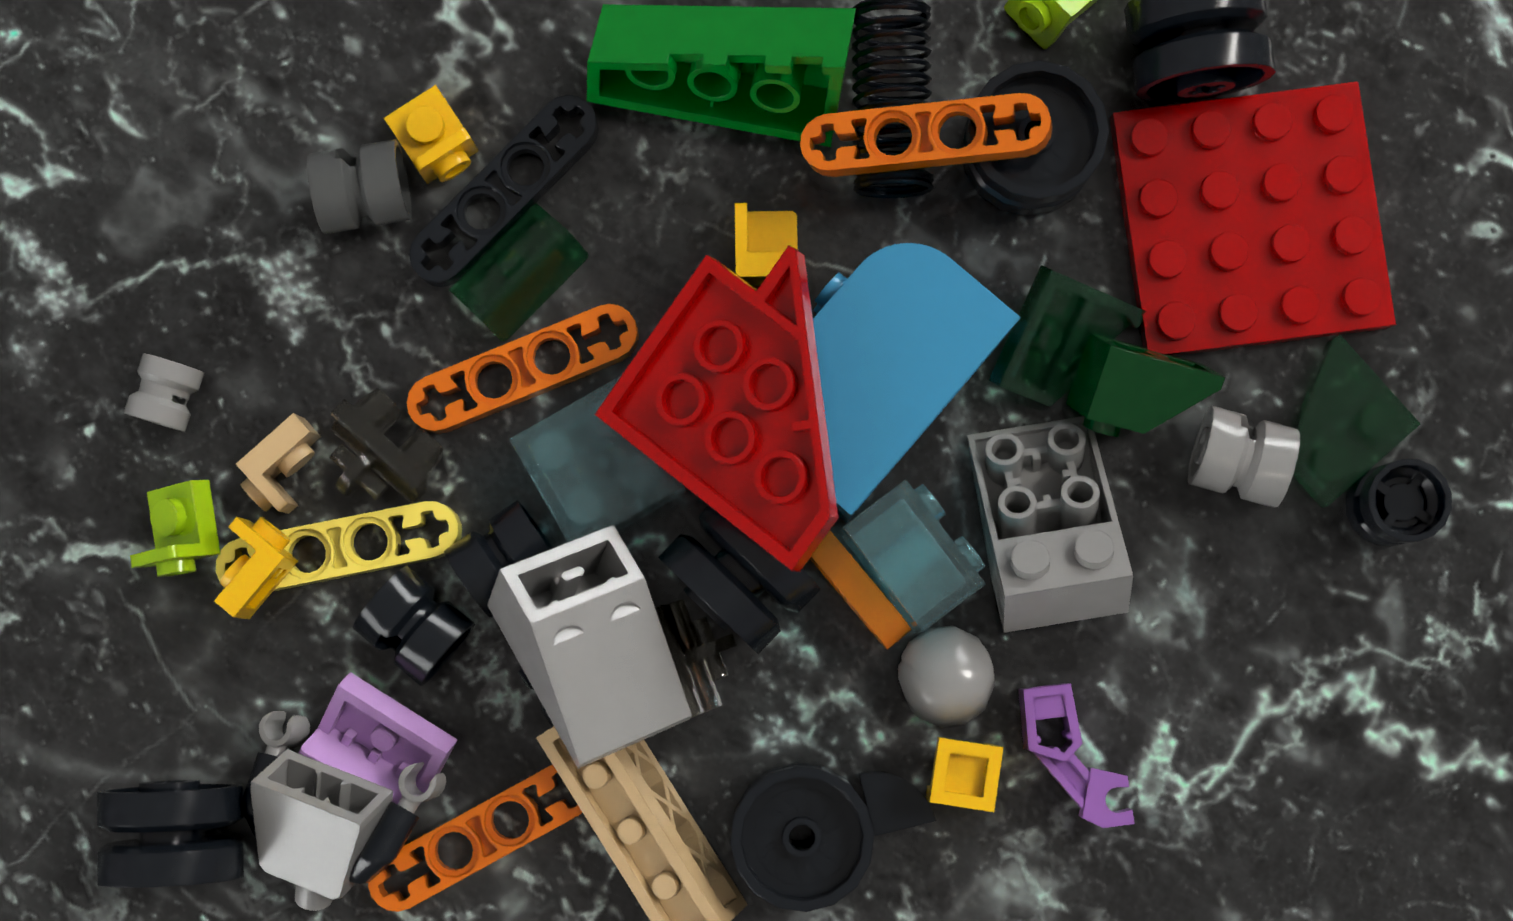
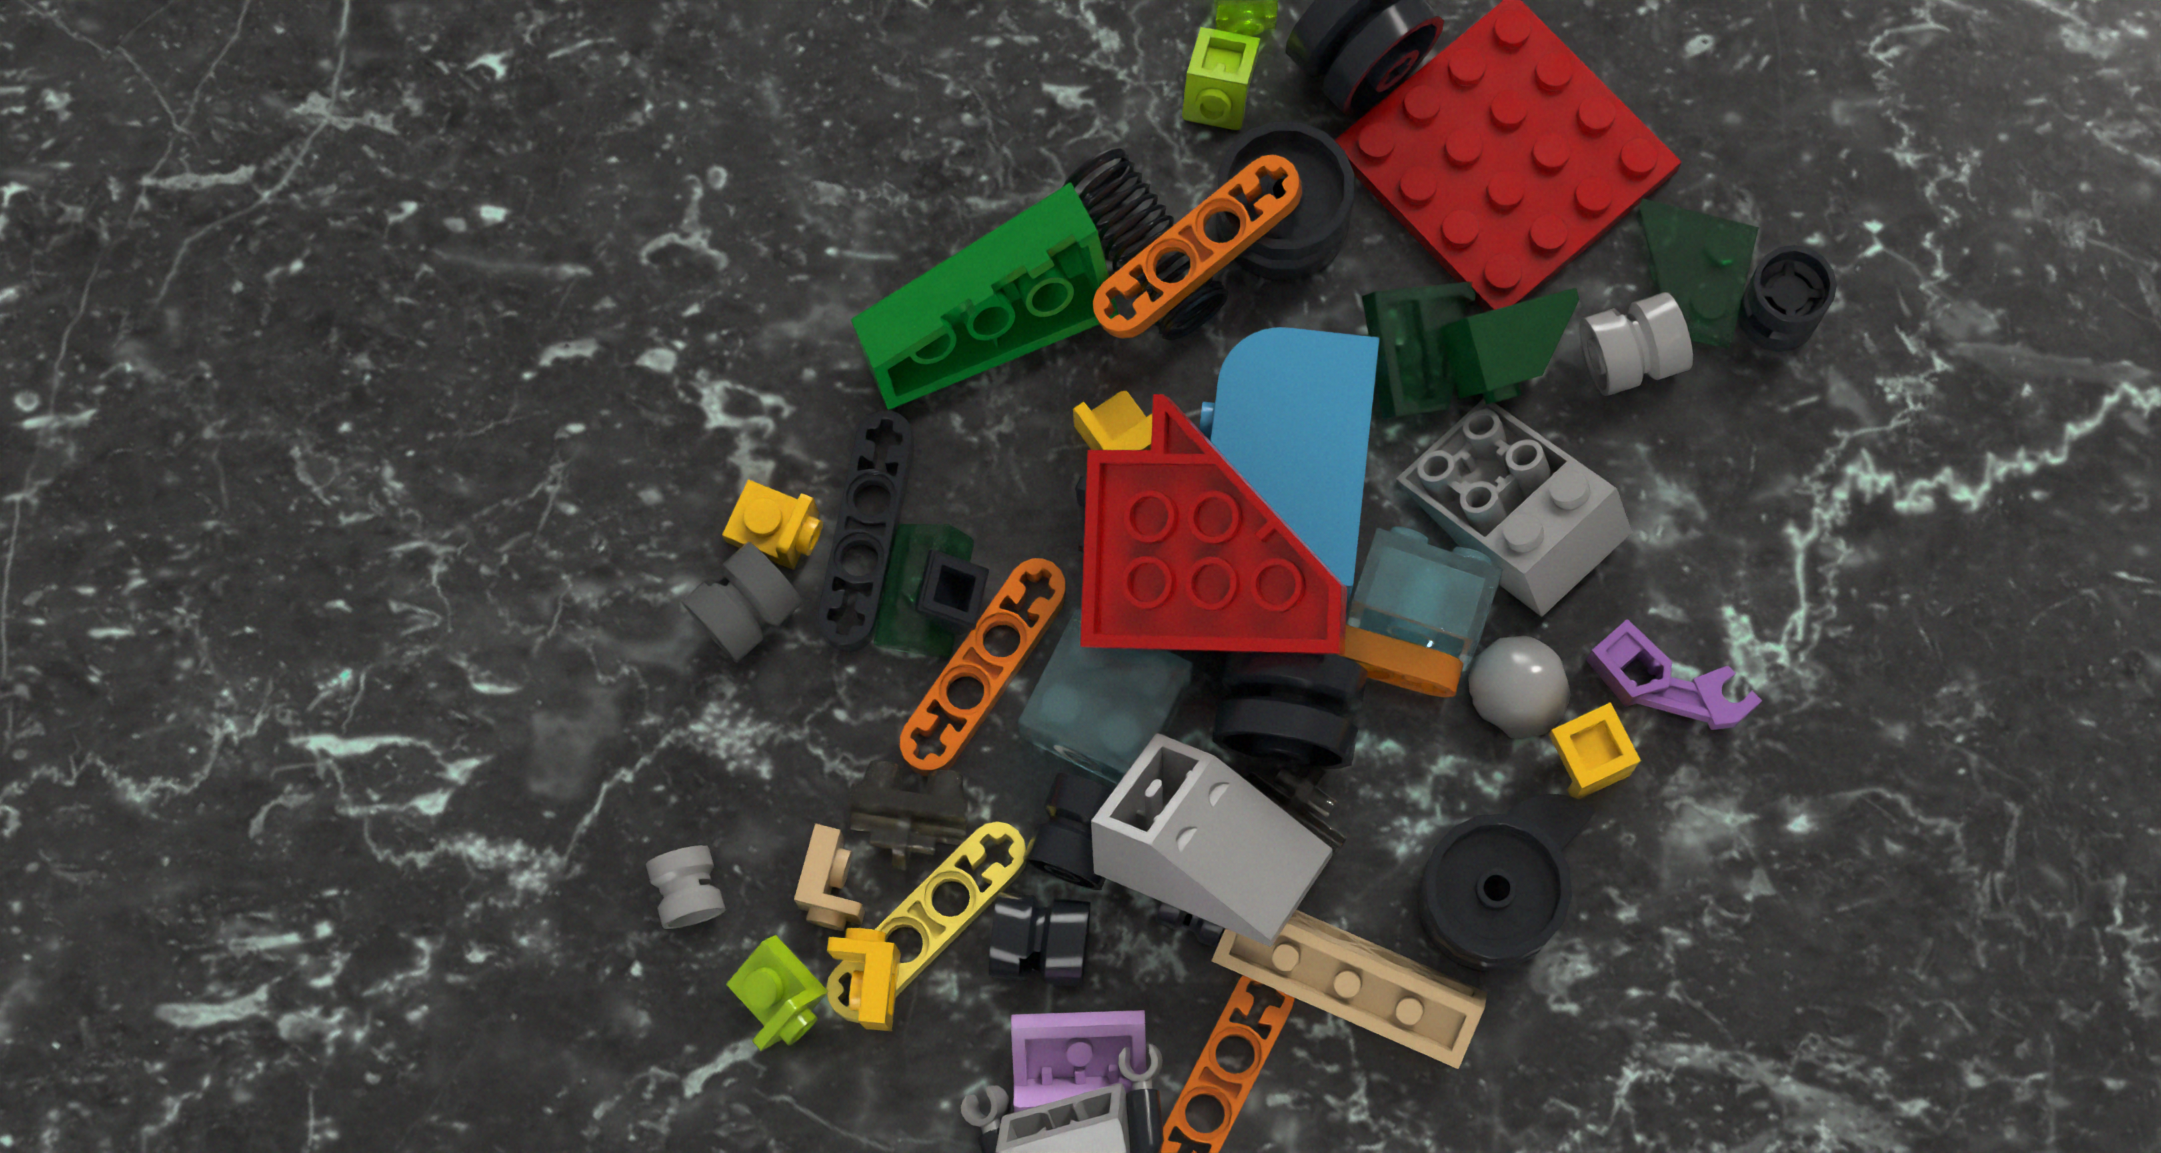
camera: 30 degrees left, 10 degrees down
(533, 291) = (951, 592): none -> black slope

